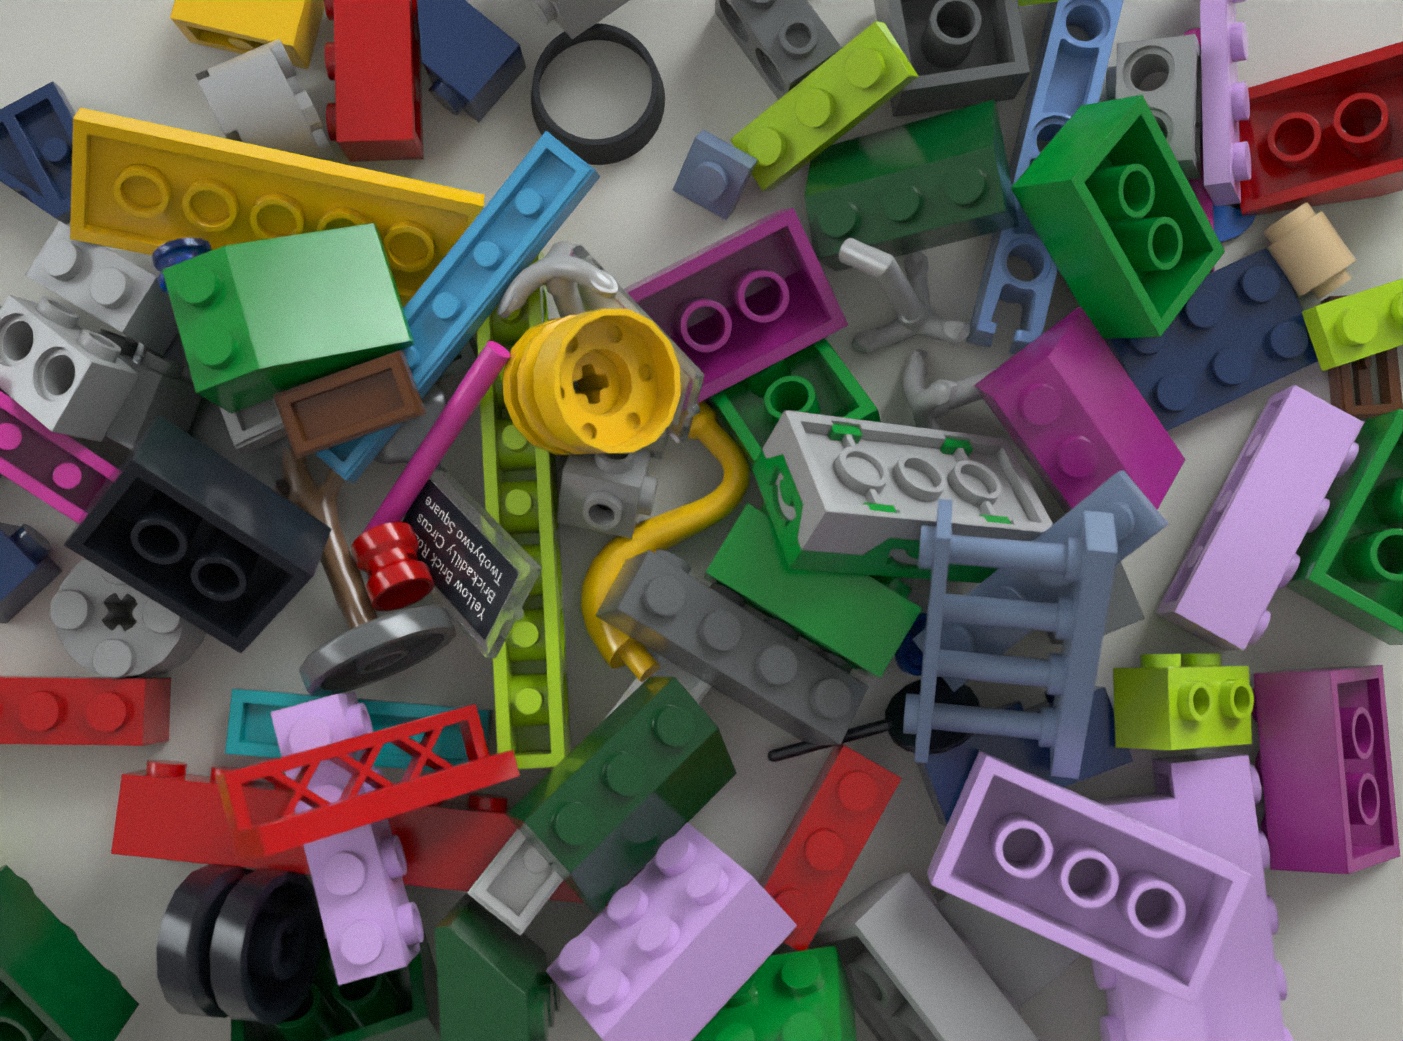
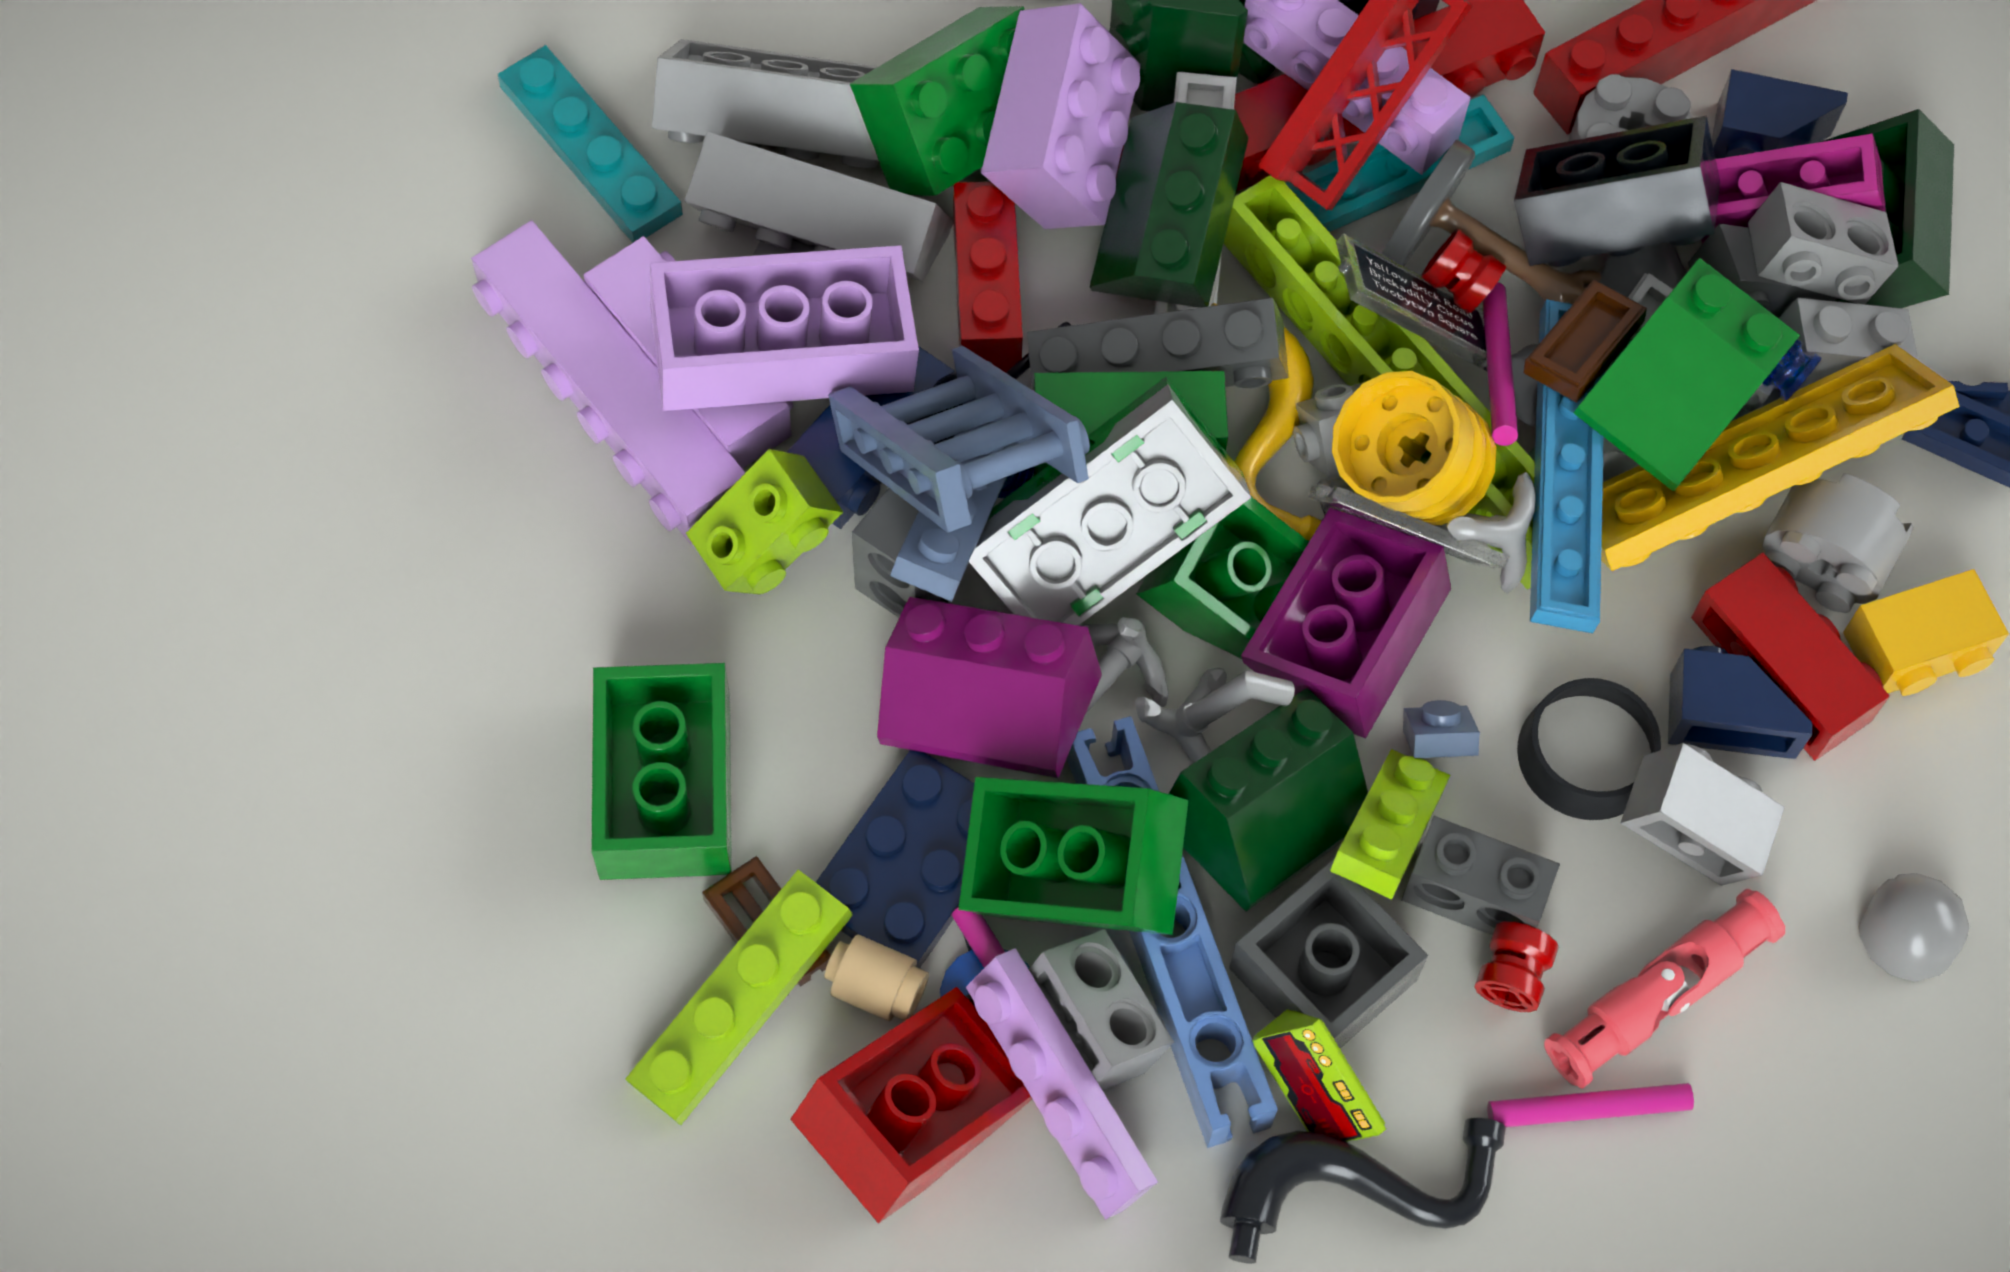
camera: 150 degrees right, 20 degrees down
(1261, 519) = (784, 716): lavender brick -> none
(1325, 768) = (603, 562): magenta slope -> none

